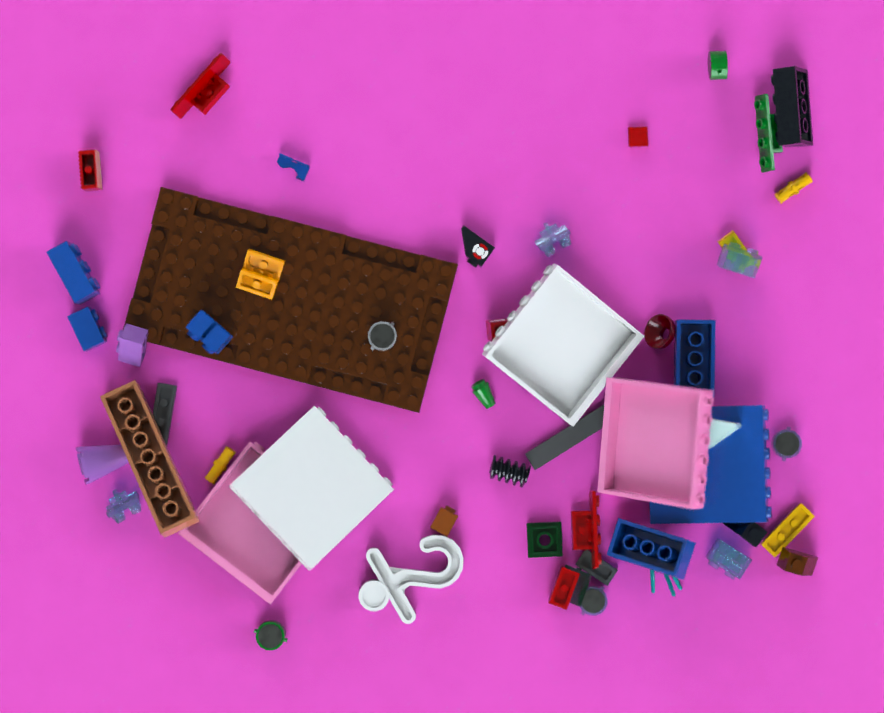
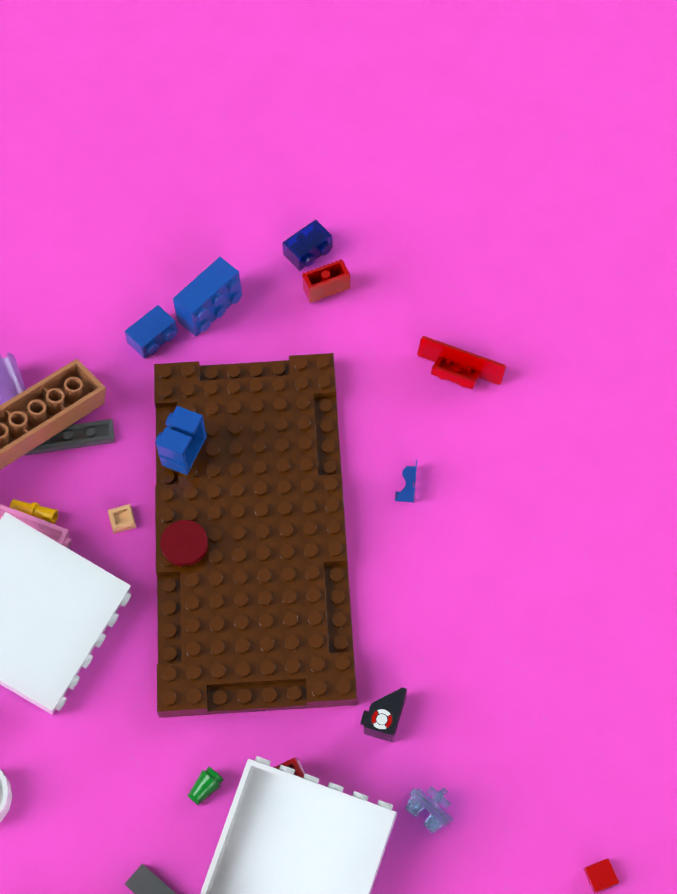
camera: 70 degrees right, 25 degrees down
(46, 173) = (307, 245): none -> clear blue brick
(132, 344) = (145, 375): medium lavender brick -> none
(248, 398) = (122, 518): none -> light nougat tile
(260, 274) = (268, 479): light orange slope -> none
(293, 355) = (184, 543): none -> dark red tile
(382, 336) = (237, 634): pearl dark grey piece -> none
(444, 520) = (29, 788): dark orange brick -> none
(509, 471) = (111, 849): black piece -> none

